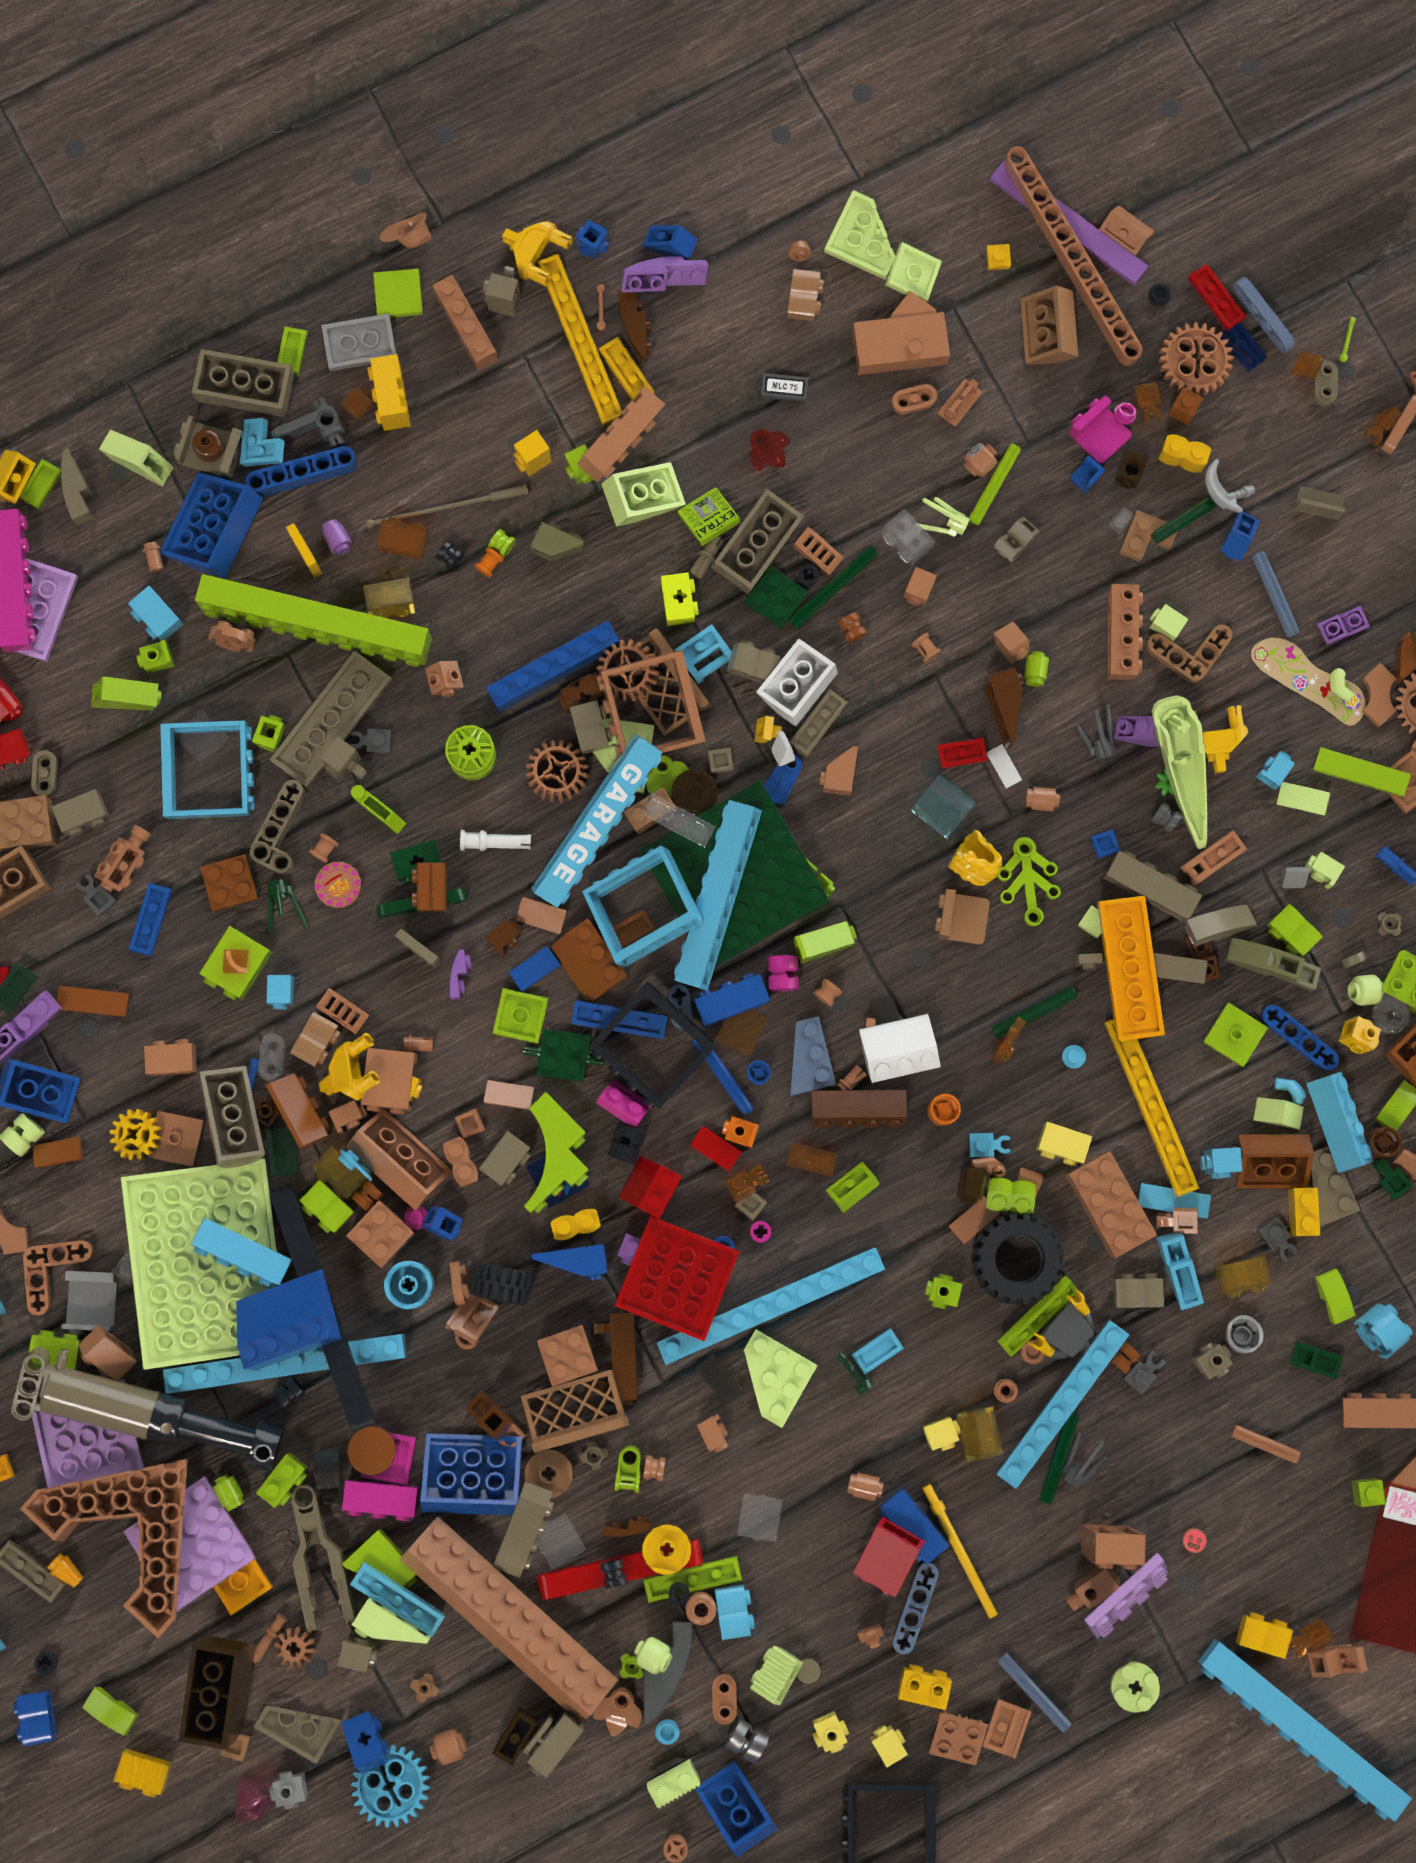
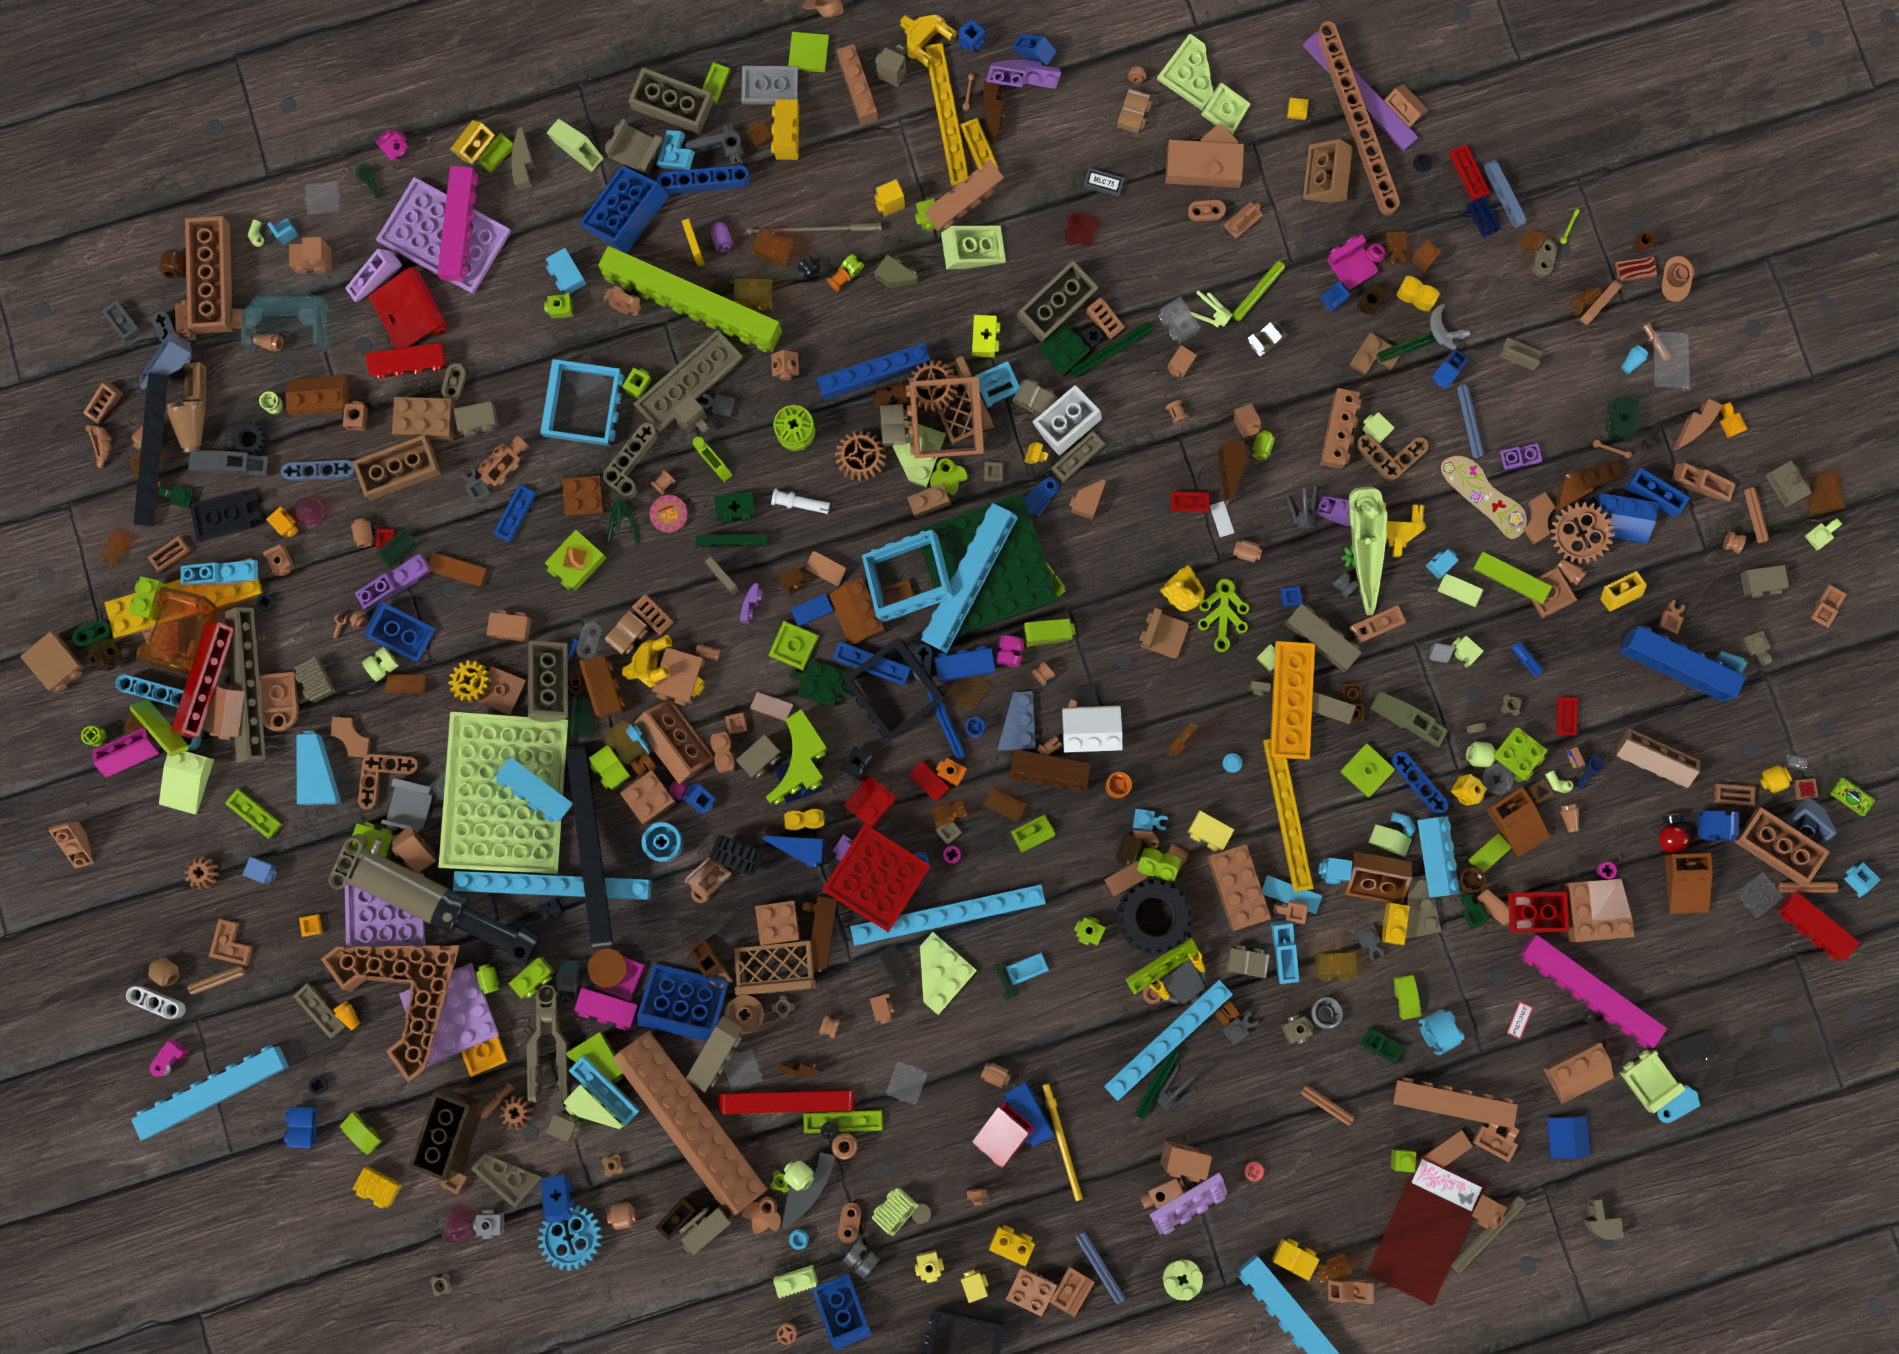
camera: 20 degrees right, 0 degrees up
(125, 694) = (529, 331): lime slope -> none
(153, 556) = (573, 226): nougat pin -> none
(207, 445) = (633, 145): reddish brown head -> none
(280, 991) = (606, 589): medium azure brick -> none
(285, 1321) = (557, 851): blue slope -> none
(348, 1116) = (640, 699): nougat brick -> none
(431, 887) = (741, 528): dark orange brick -> none
(460, 1290) = (702, 853): nougat plate -> none
(596, 821) = (884, 500): medium azure brick -> none
(613, 1575) = (779, 1103): black wheel -> none
(623, 1103) = (861, 731): dark pink plate -> none
(628, 1471) = (808, 1025): lime piece -> none
(674, 1561) = (816, 1098): yellow plate -> none
(678, 820) = (948, 511): clear brick -> none
(694, 791) = (967, 492): dark brown tile -> none
(706, 557) = (1014, 306): dark tan axle -> none
(709, 516) = (1022, 274): lime tile -> none
(733, 1612) = (870, 1154): medium azure brick -> none
(782, 749) = (1044, 472): white slope -> none
(852, 627) = (1120, 384): dark orange wheel -> none
(913, 1607) = (1019, 1181): sand blue beam -> none
(942, 1433) = (1066, 1045): light yellow brick -> none
(943, 806) = (1166, 541): clear light blue slope -> none
(979, 1433) = (1096, 1050): clear yellow brick -> none
(980, 459) = (1250, 269): nougat head -> none
(1012, 1394) = (1119, 1016): nougat plate -> none
(1036, 1011) = (1210, 720): dark green axle -> none
(1121, 520) = (1355, 338): clear hinge -> none
(1217, 360) = (1459, 223): nougat gear -> none
(1219, 924) = (1371, 679): dark tan slope -> none
(1294, 931) = (1431, 696): lime brick -> none
(1337, 685) = (1507, 504): yellowish green arm -> none

